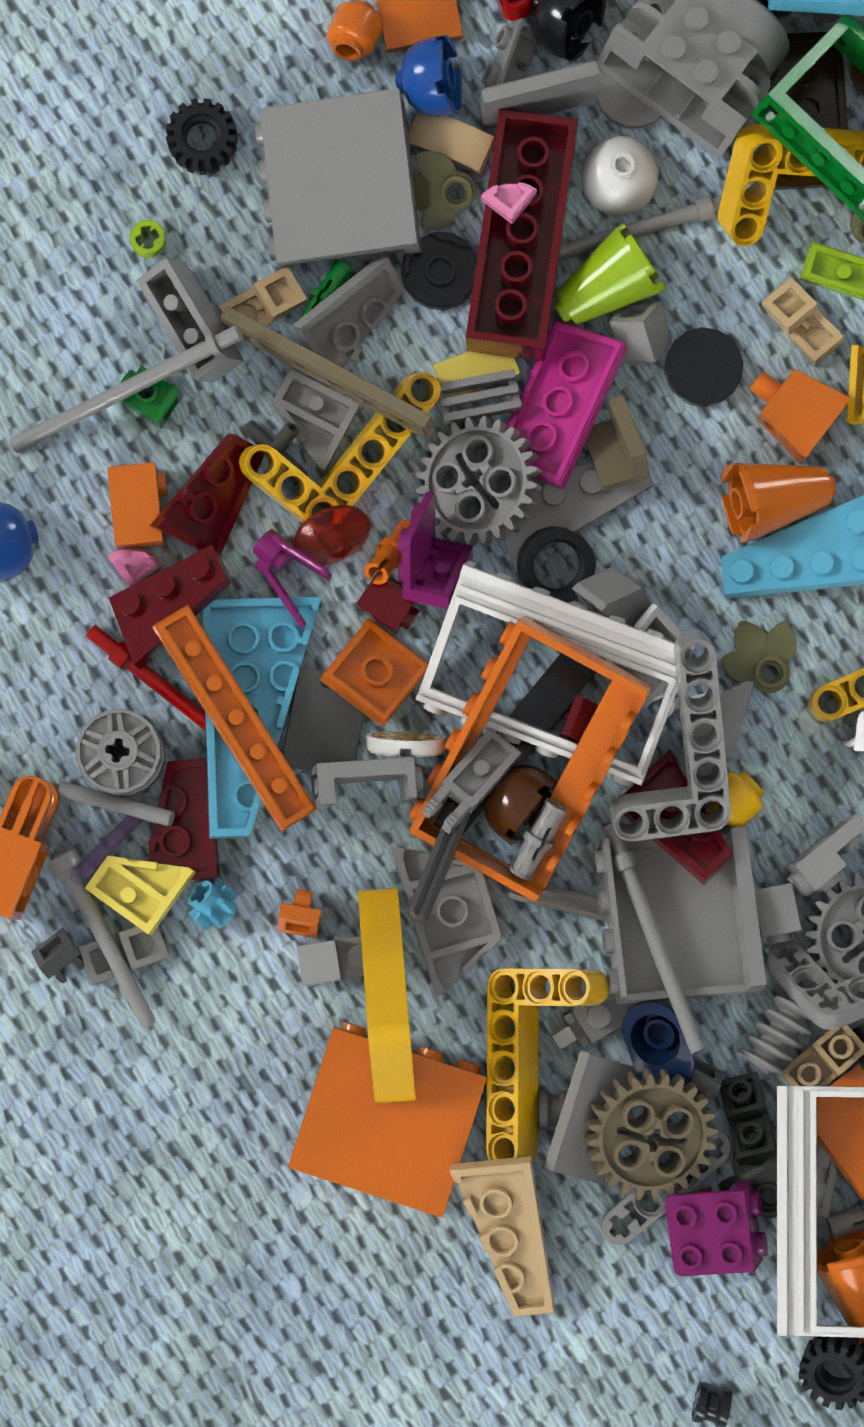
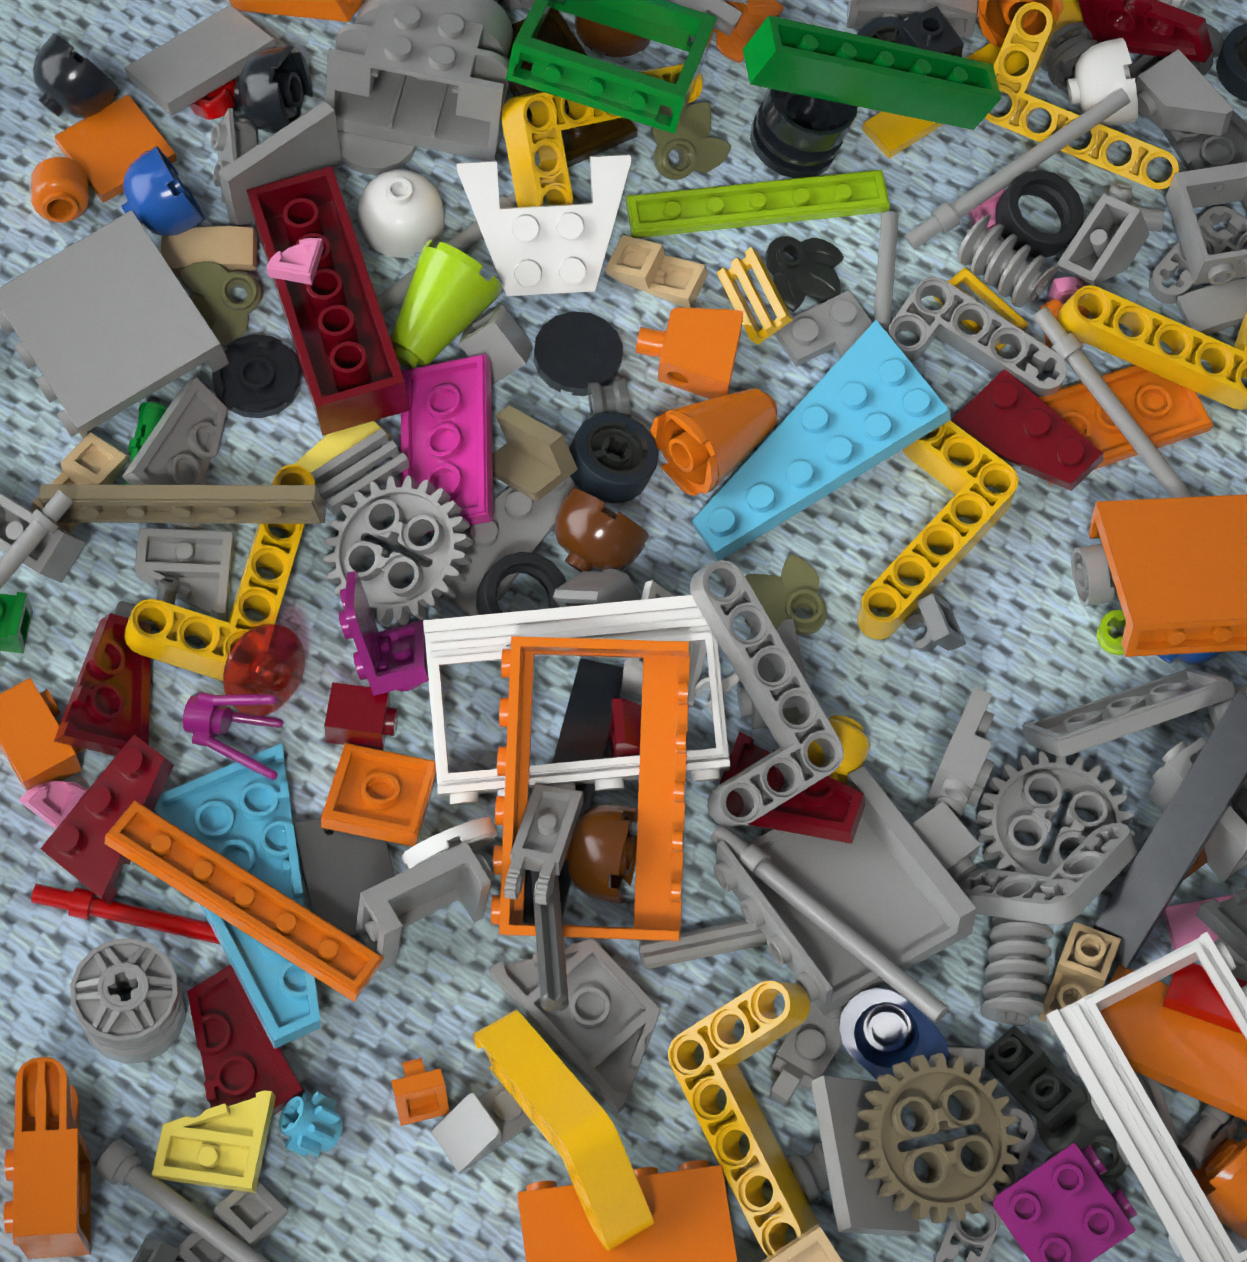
camera: 25 degrees left, 20 degrees down
(112, 847) = (168, 1112): medium lavender piece -> none
(116, 803) = (148, 1065): light grey bar -> none
(386, 556) = (336, 661): orange pin -> none
(538, 839) = (647, 874): light grey pin -> none
(637, 540) = (596, 535): none -> reddish brown cylinder
(673, 492) = (613, 457): none -> black wheel
(705, 425) = (609, 398): none -> dark grey wheel
(724, 264) = (547, 245): none -> white wing

